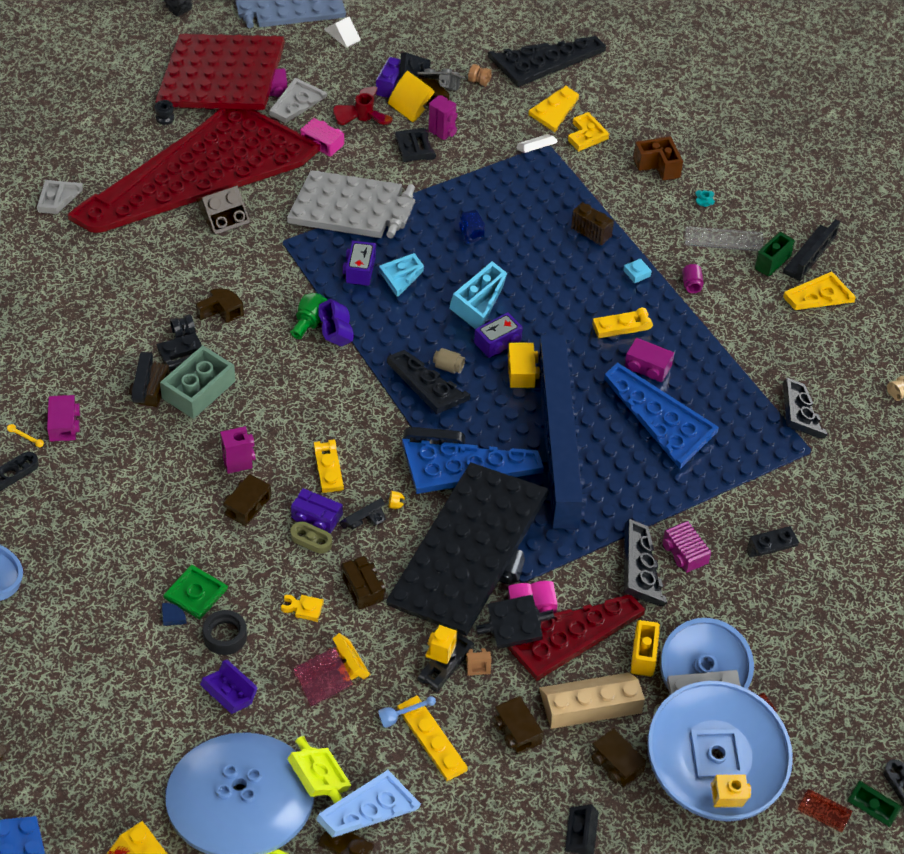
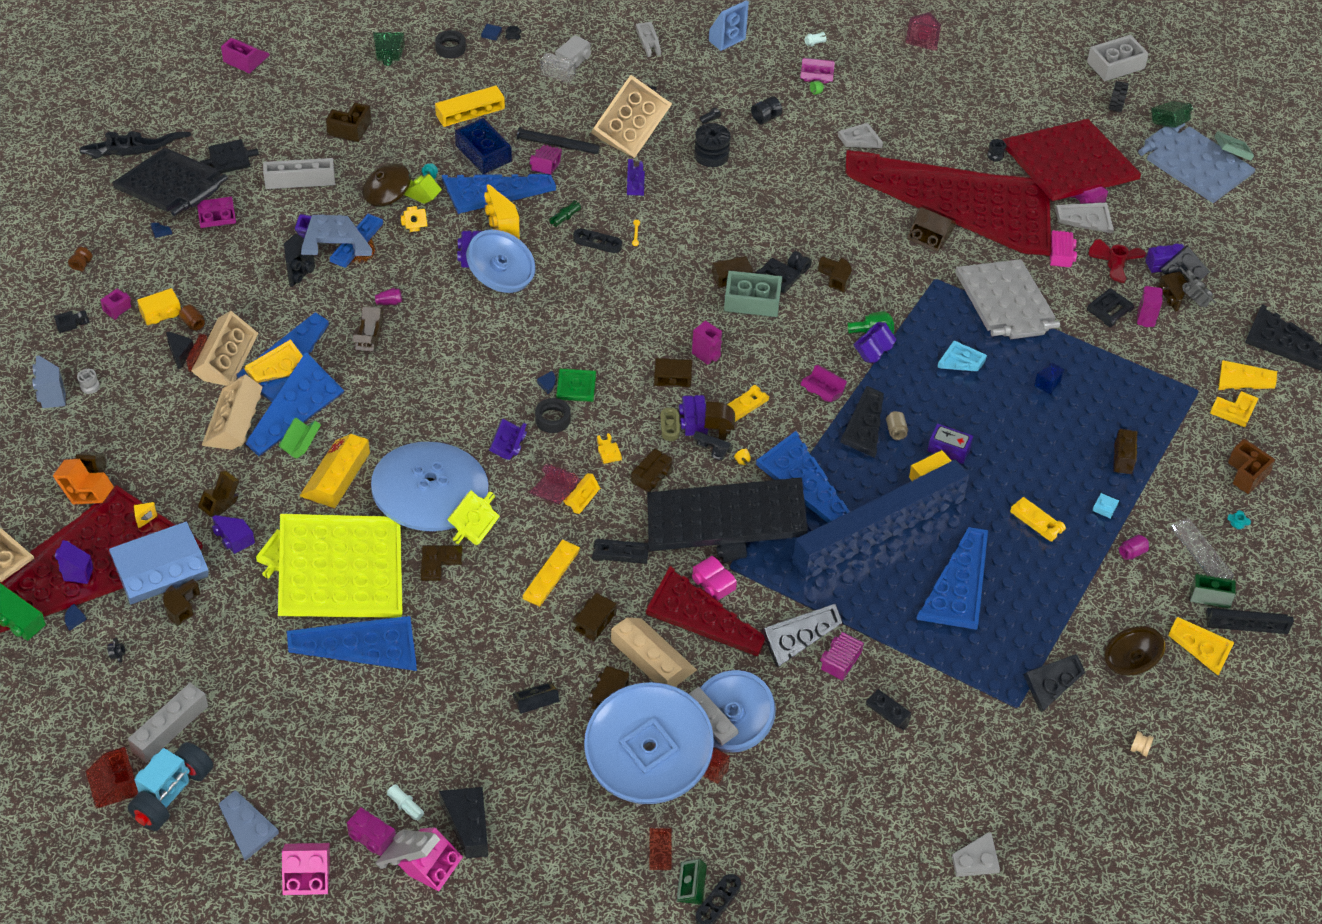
camera: 60 degrees right, 0 degrees up
(62, 418) = (662, 241): magenta brick -> none
(142, 377) = (714, 262): black beam -> none
(344, 32) = (1190, 209): white slope -> none
(346, 490) = (720, 417): none -> dark brown brick
(353, 388) = (824, 384): none -> magenta bracket
(360, 262) = (948, 329): brick -> none
(368, 805) = (467, 558): light blue wing -> none
(389, 715) = (549, 538): medium blue hinge -> none
(410, 96) = (1157, 275): yellow slope -> none
(418, 434) = (814, 449): black beam -> none
(442, 644) = (625, 530): yellow brick -> none
(478, 295) = (978, 412): medium azure wedge -> none
(478, 663) = (632, 569): medium nougat tile -> none
(479, 75) = (1229, 311): medium nougat wheel -> none
(515, 621) = (680, 572): black plate -> none
(536, 143) = (1189, 381): white tile -> none
(645, 648) = (718, 662): yellow brick -> none
(649, 359) = (1010, 551): magenta brick -> none
(730, 790) = (612, 760): yellow brick -> none
(800, 329) = (1134, 650): none -> dark brown dish

